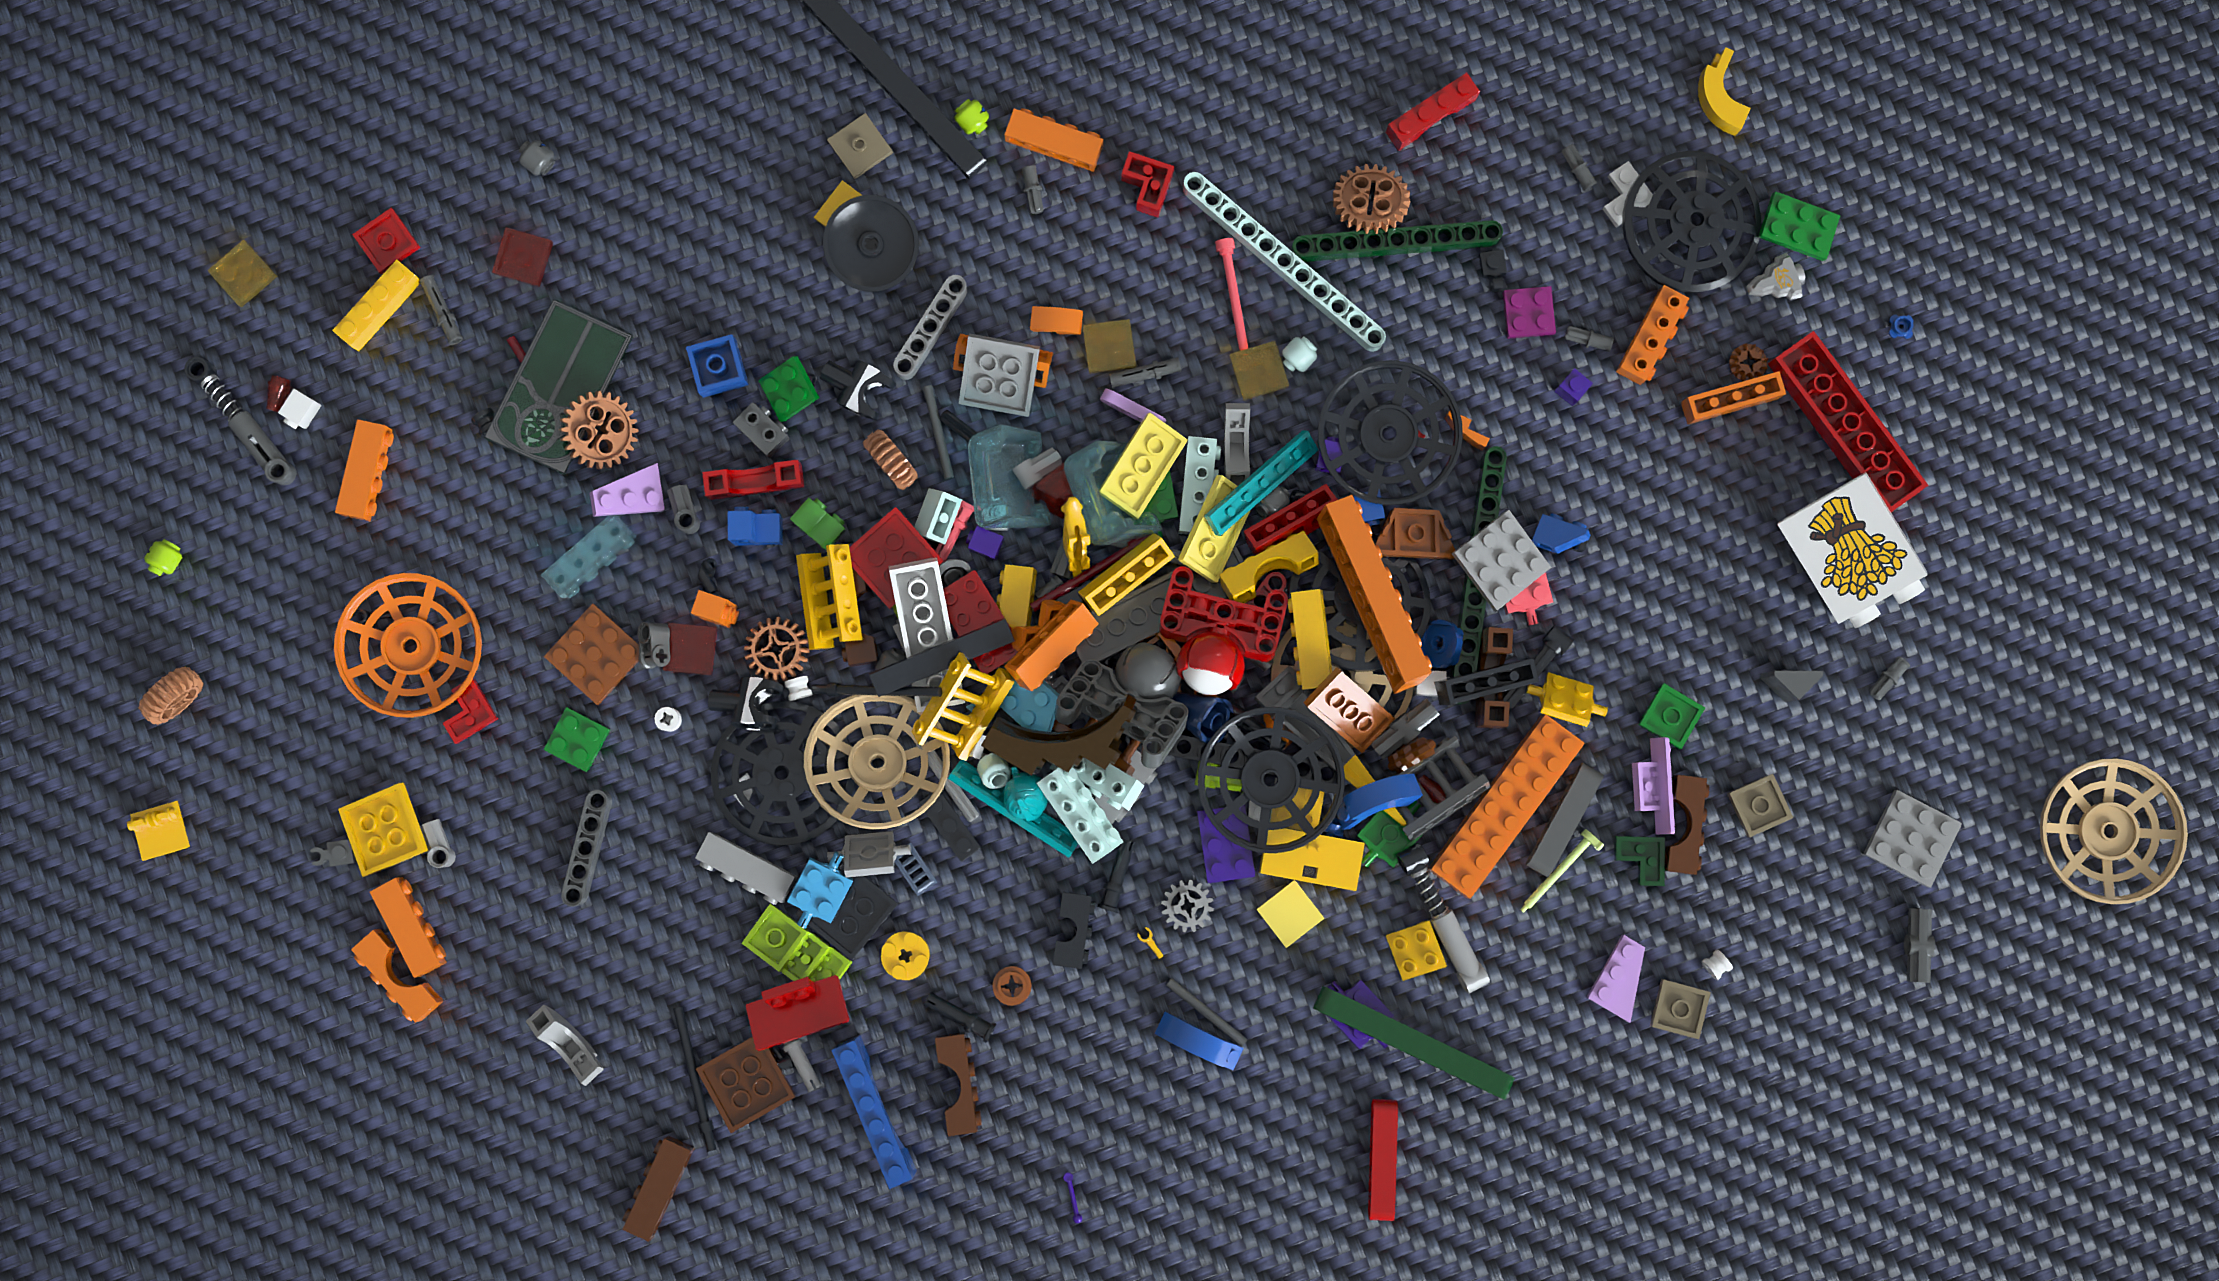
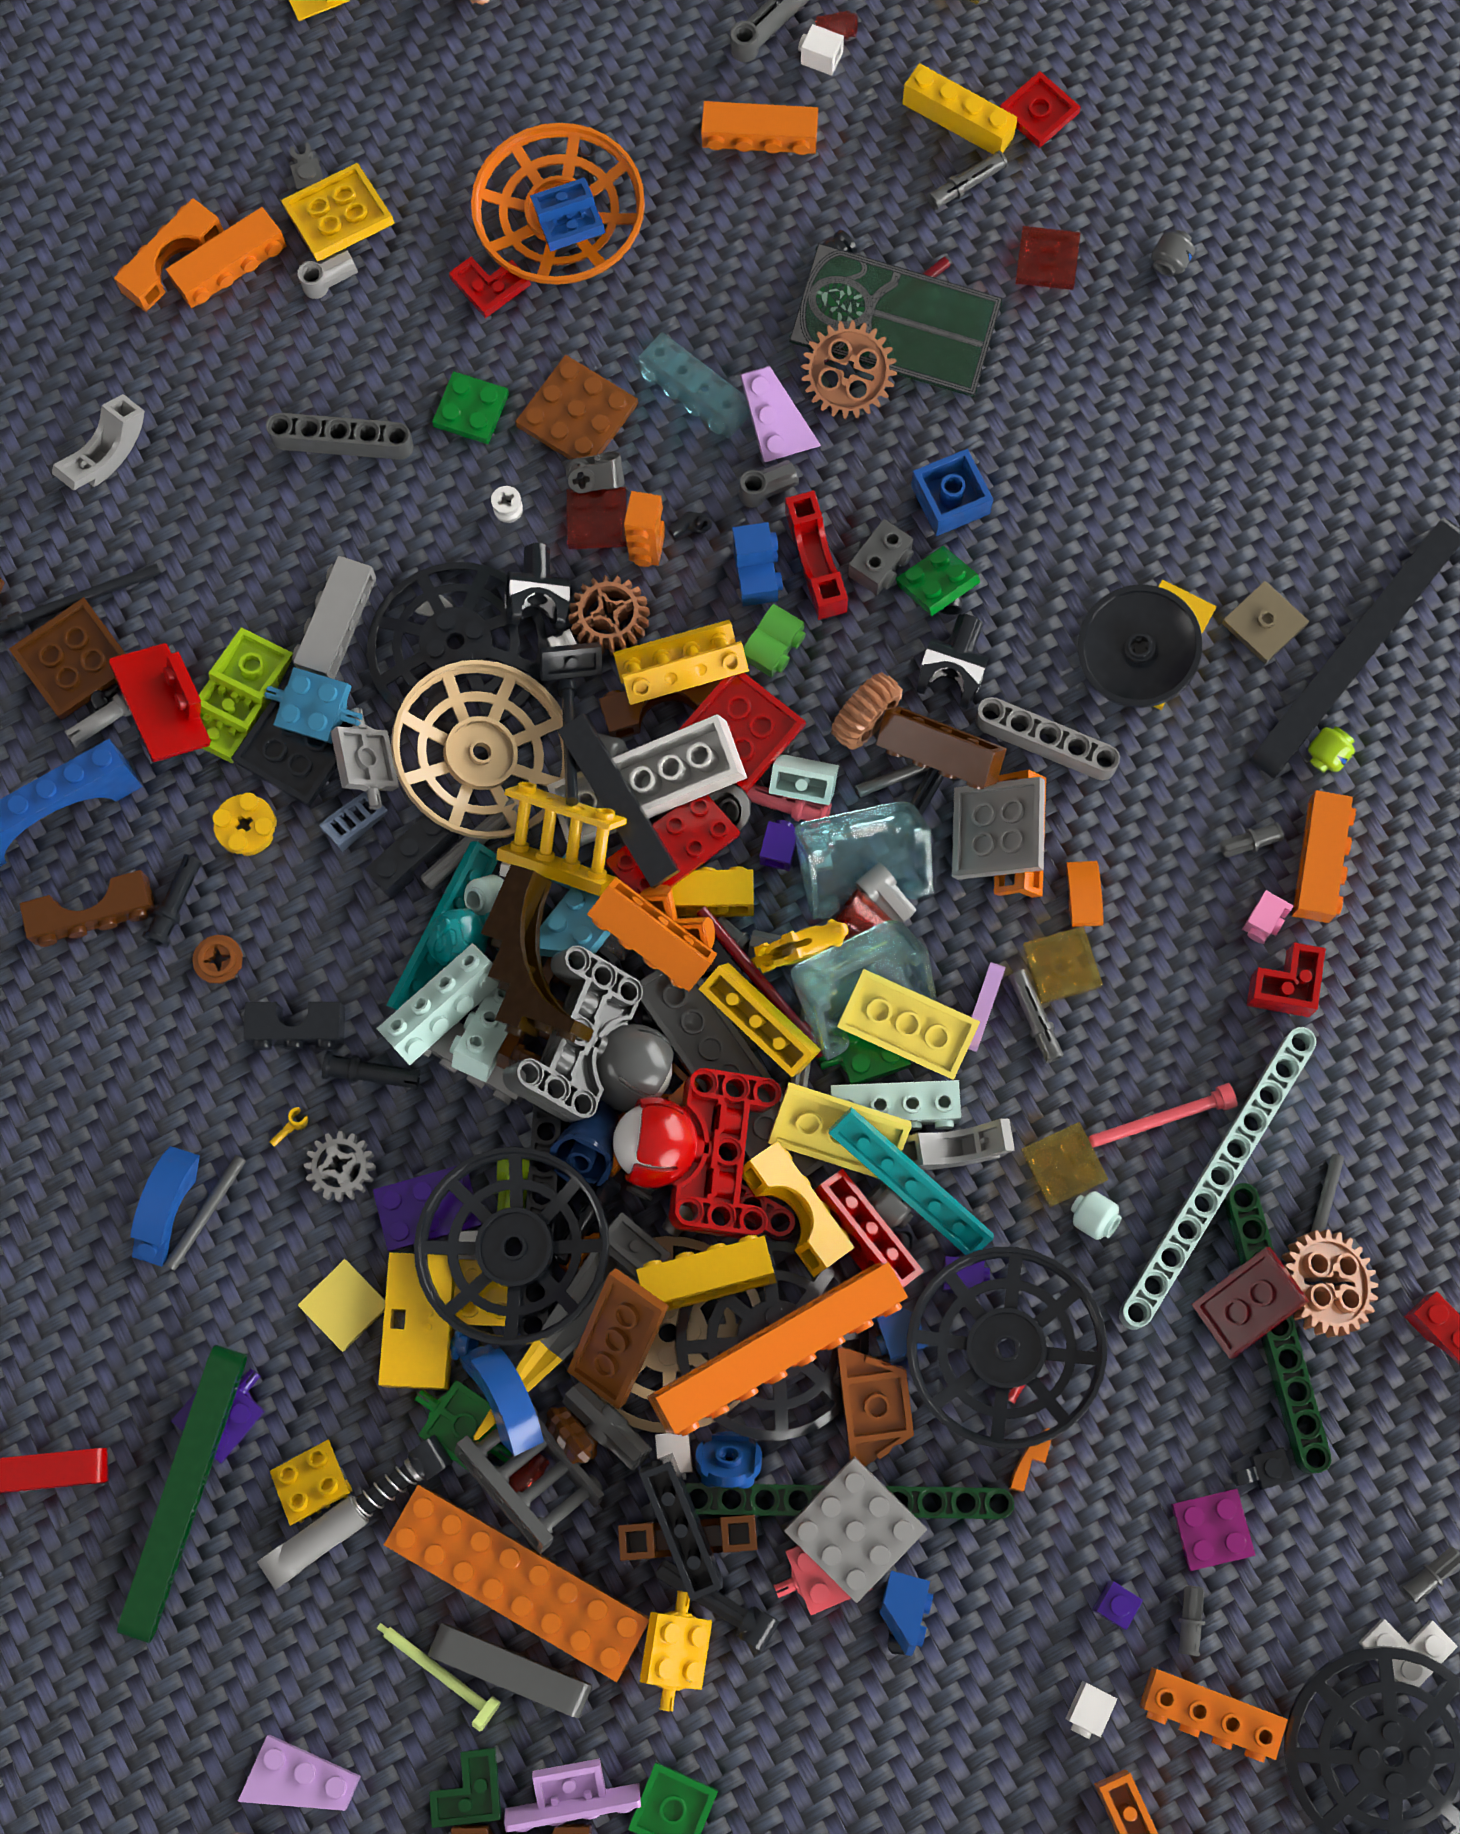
camera: 90 degrees right, 10 degrees down
(422, 637) = (567, 214): none -> blue slope
(814, 683) = (570, 661): none -> black plate
(929, 407) = (941, 747): none -> reddish brown brick
(1095, 190) = (1267, 917): none -> bright pink brick
(1306, 187) = (1328, 1192): none -> dark grey bar
(1379, 256) = (1250, 1302): none -> dark red tile
(1640, 418) = (1090, 1710): none -> white brick

